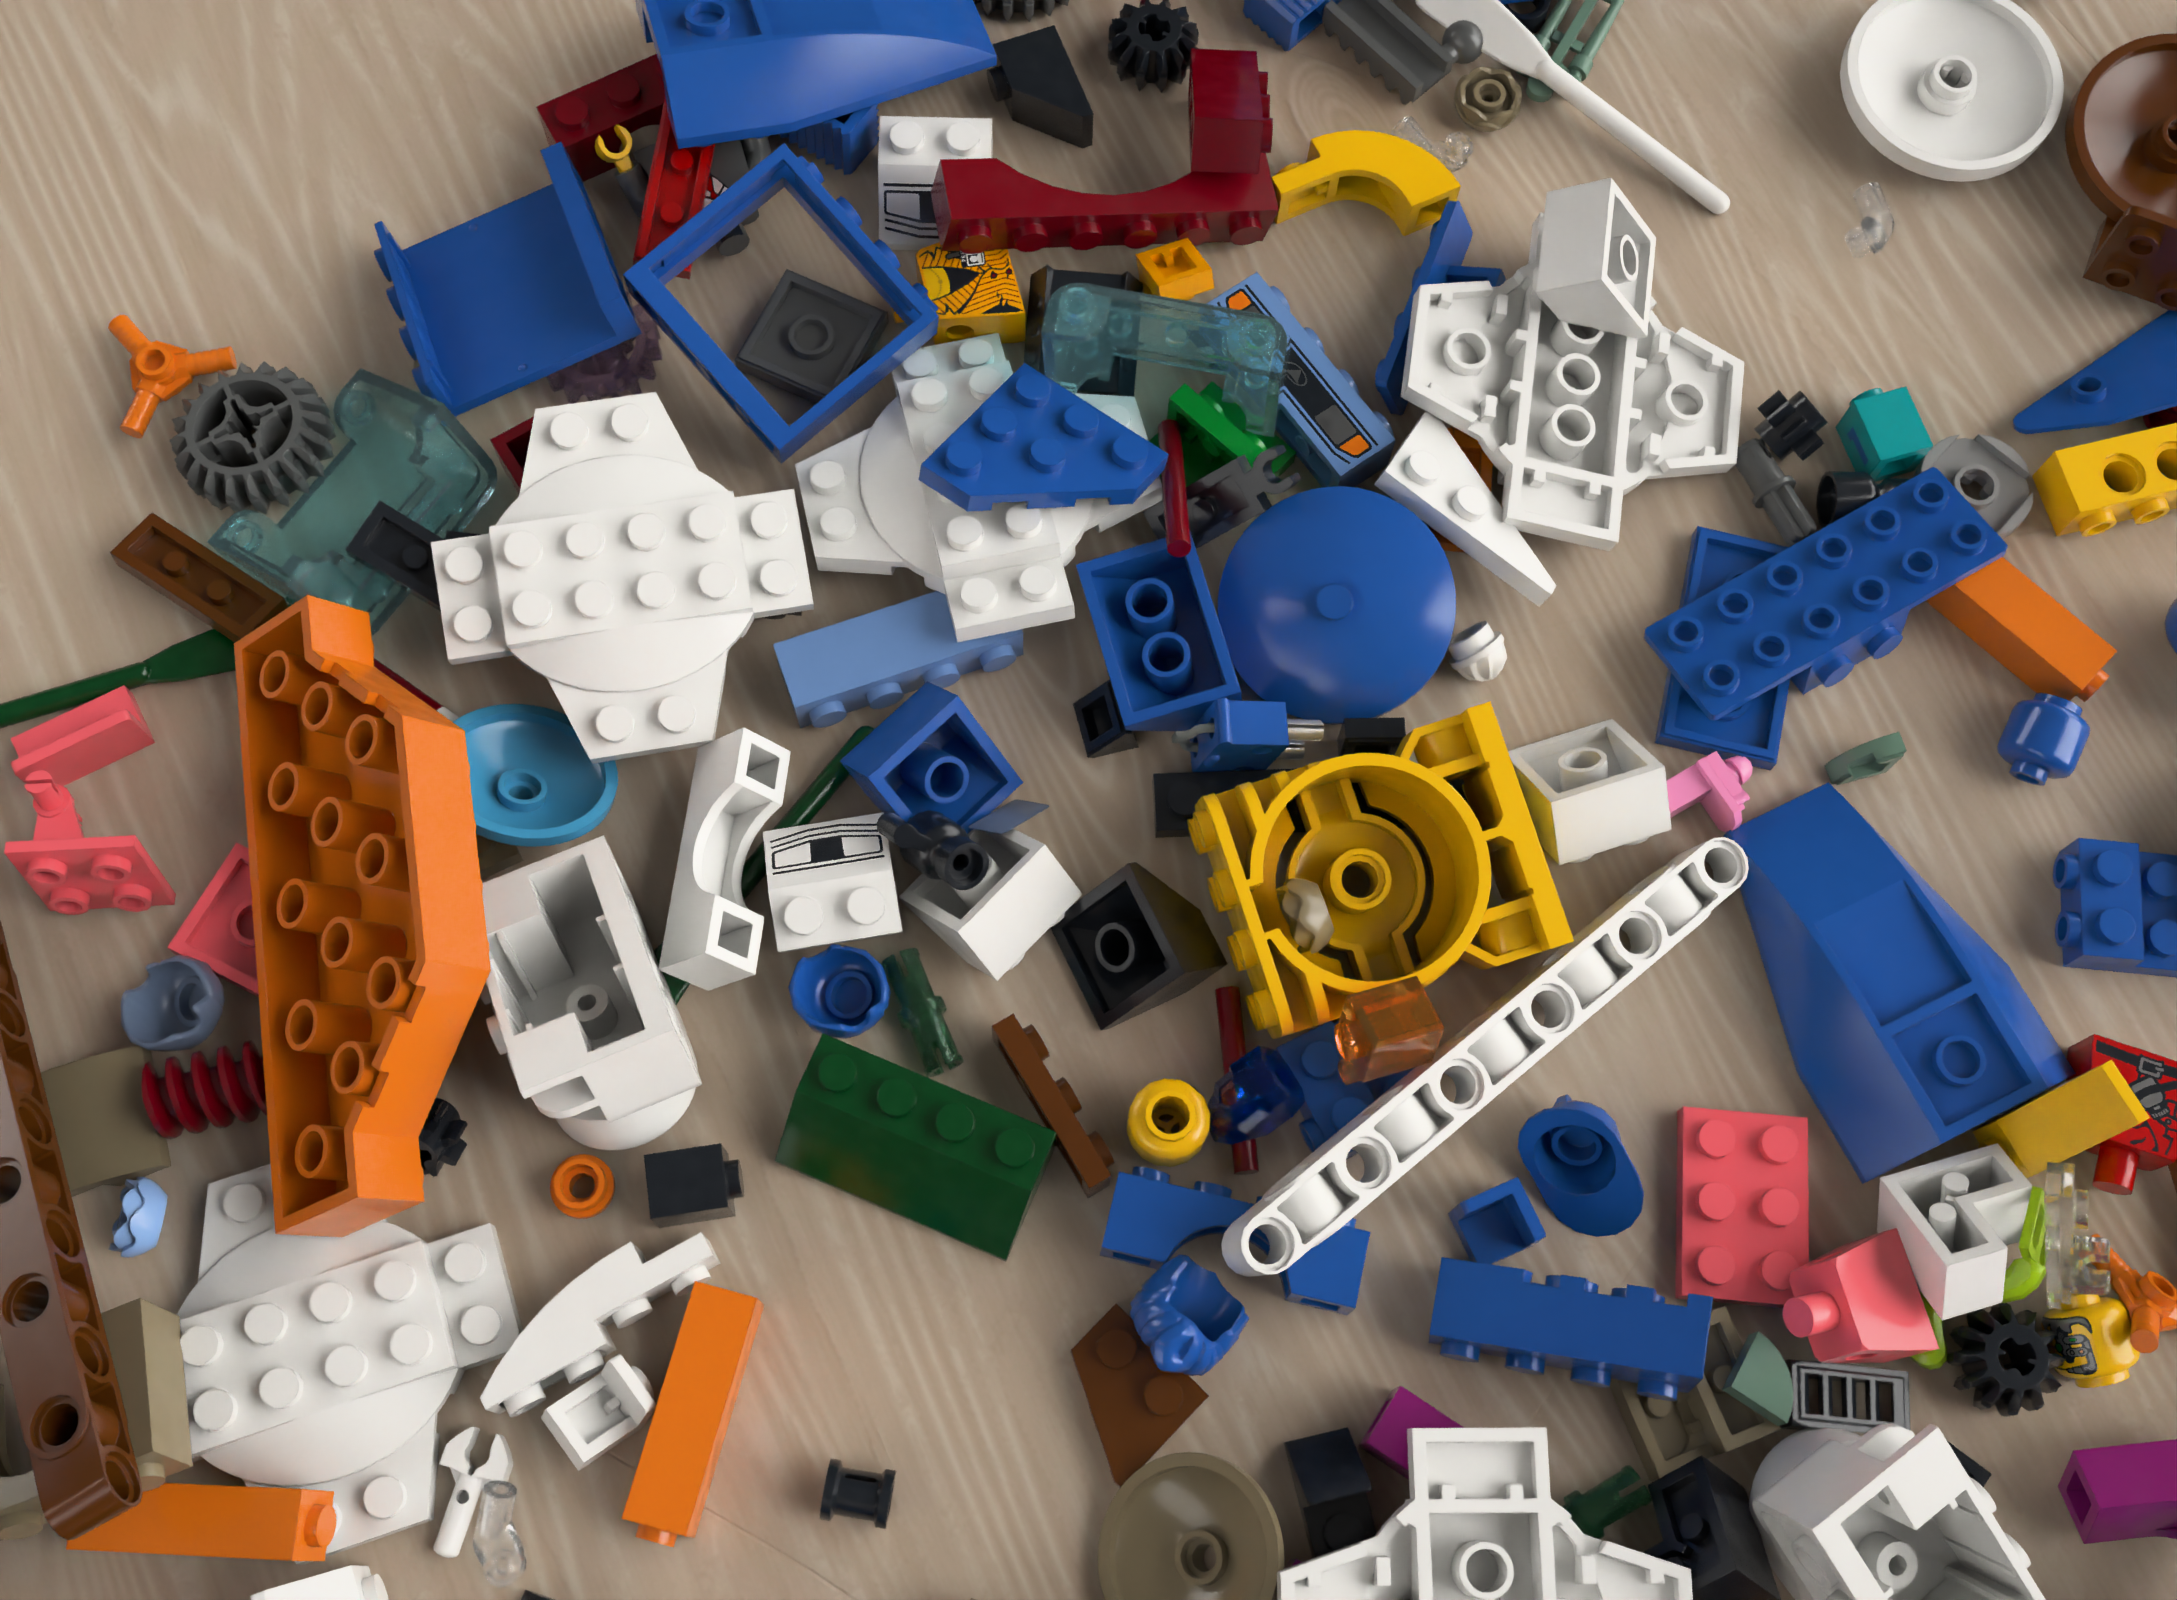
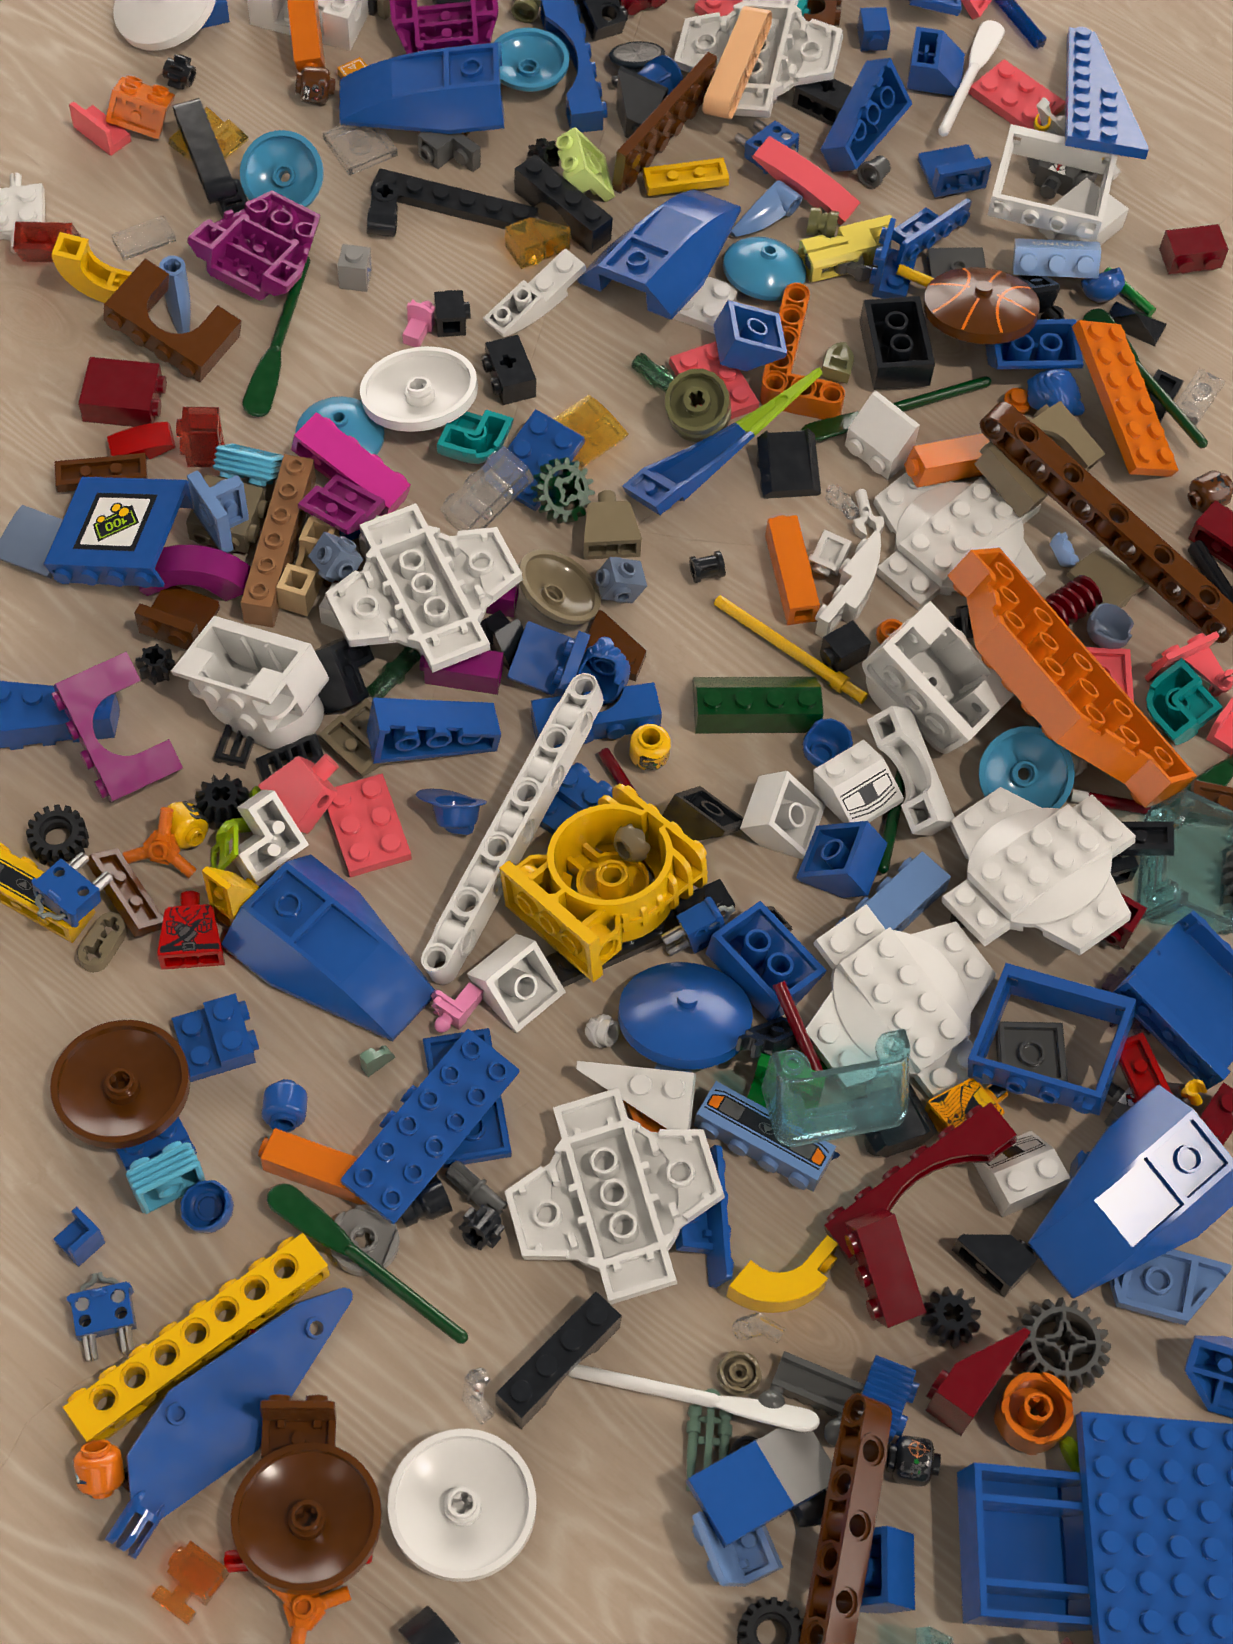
camera: 155 degrees right, 10 degrees down
(163, 788) = (1180, 703): none -> teal brick
(740, 1129) = (837, 680): none -> yellow bar
(922, 1012) = (785, 757): clear green pin -> none
(937, 848) = (819, 817): black piece -> none
(1009, 816) = (793, 853): sand blue sticker -> none
(1042, 449) = (872, 1002): blue plate -> none
(1053, 1527) = (621, 580): none -> sand blue brick
(1054, 1104) = (706, 738): reddish brown plate -> none
(1174, 271) = (861, 1163): light orange bracket -> none
(1254, 1097) = (615, 767): clear blue rock -> none
(1276, 1395) = (547, 659): none -> blue bracket
(1370, 735) = (636, 962): black tile -> none
(1386, 1031) = (570, 794): clear orange brick -> none
(1497, 1223) = (480, 770): blue panel -> none
(1595, 259) = (631, 1250): white slope -> none
(1762, 1380) = (336, 745): sand green tile -> none
(1793, 185) = (540, 1376): none -> black arch
(1884, 433) = (426, 1248): teal brick -> none
(2053, 529) = (317, 1224): none -> dark green piece
(2064, 1251) = (214, 845): clear plate -> none

